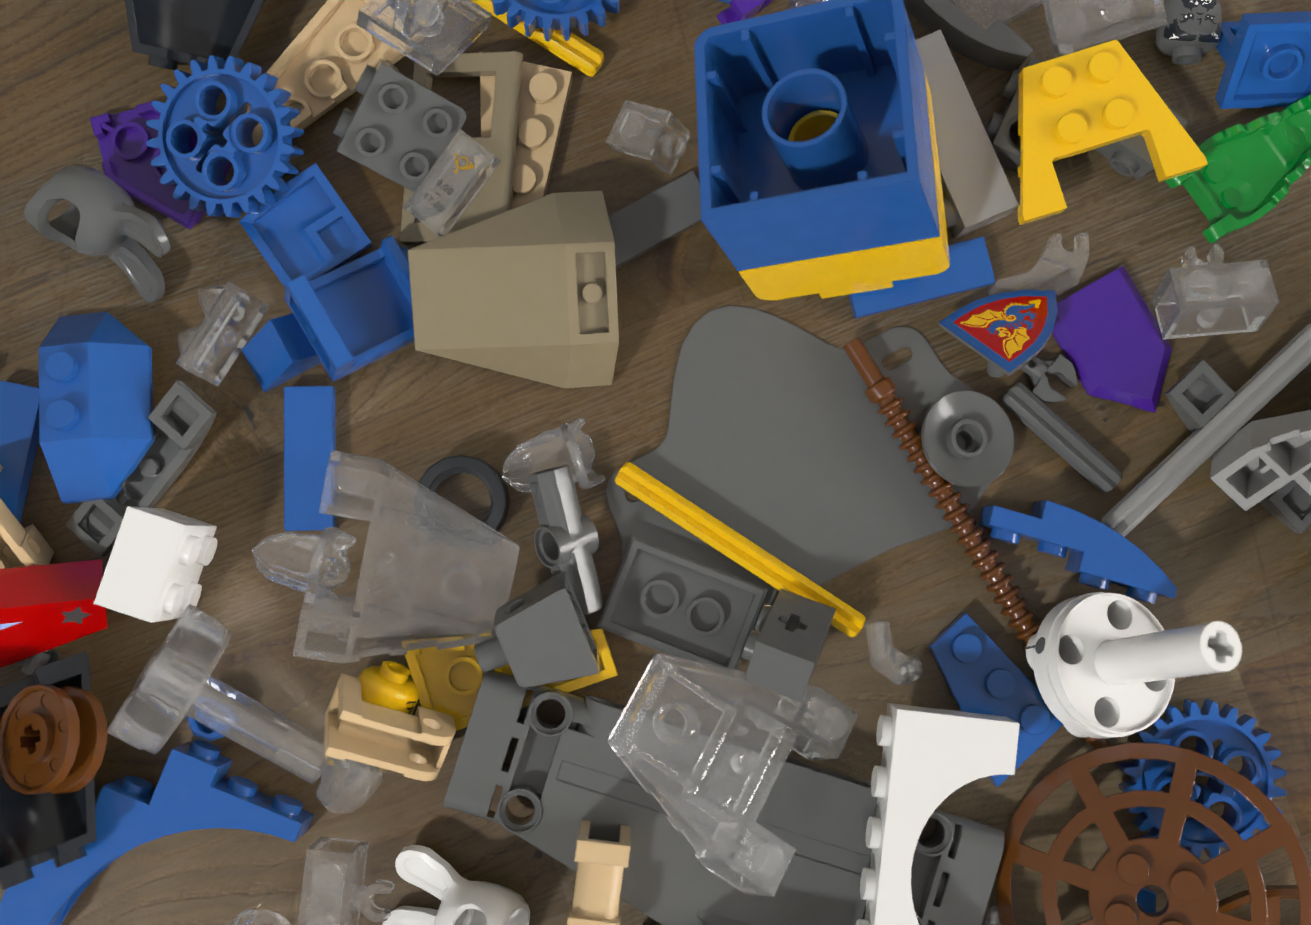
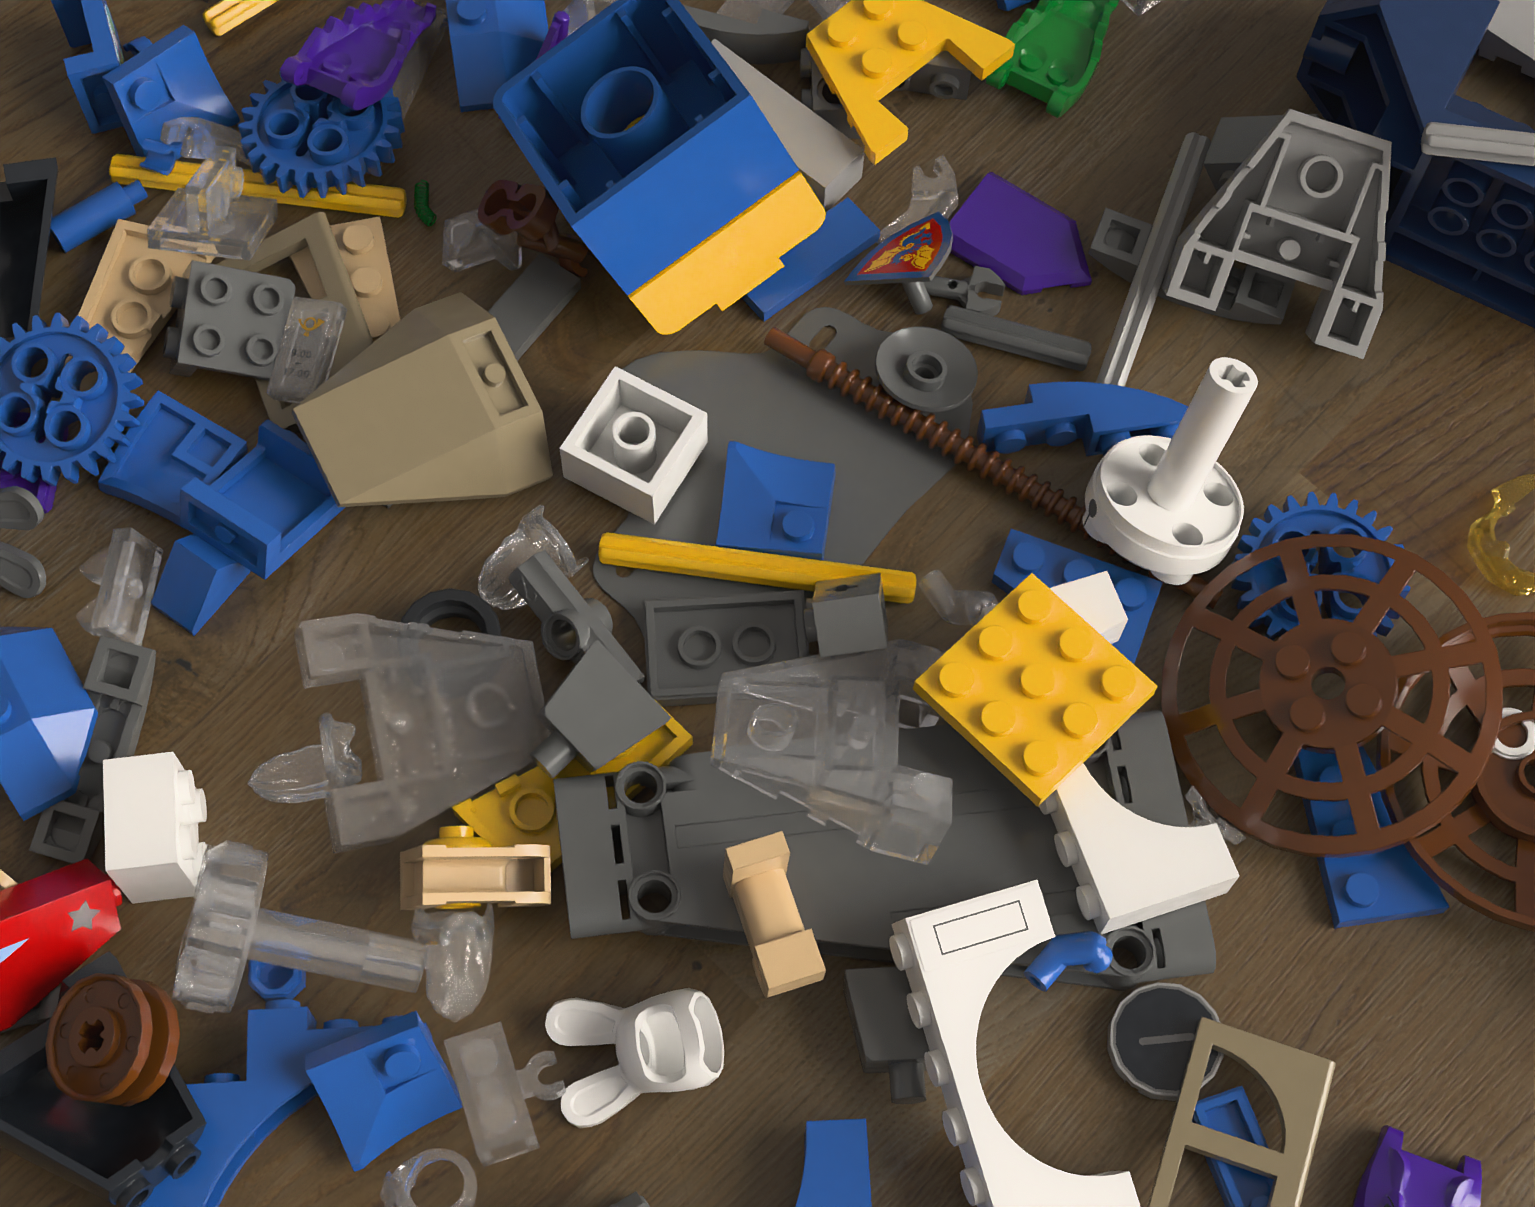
camera: 30 degrees left, 20 degrees down
(246, 854) = (382, 1086): none -> blue plate
(307, 449) = (269, 674): blue tile -> none
(614, 72) = (419, 197): none -> green leg
(676, 134) = (532, 215): none -> reddish brown piece
(686, 399) = (634, 445): none -> white brick
(780, 501) = (775, 503): none -> blue plate
(904, 805) = (1034, 688): none -> yellow plate
(1214, 296) = (1087, 157): clear brick -> none

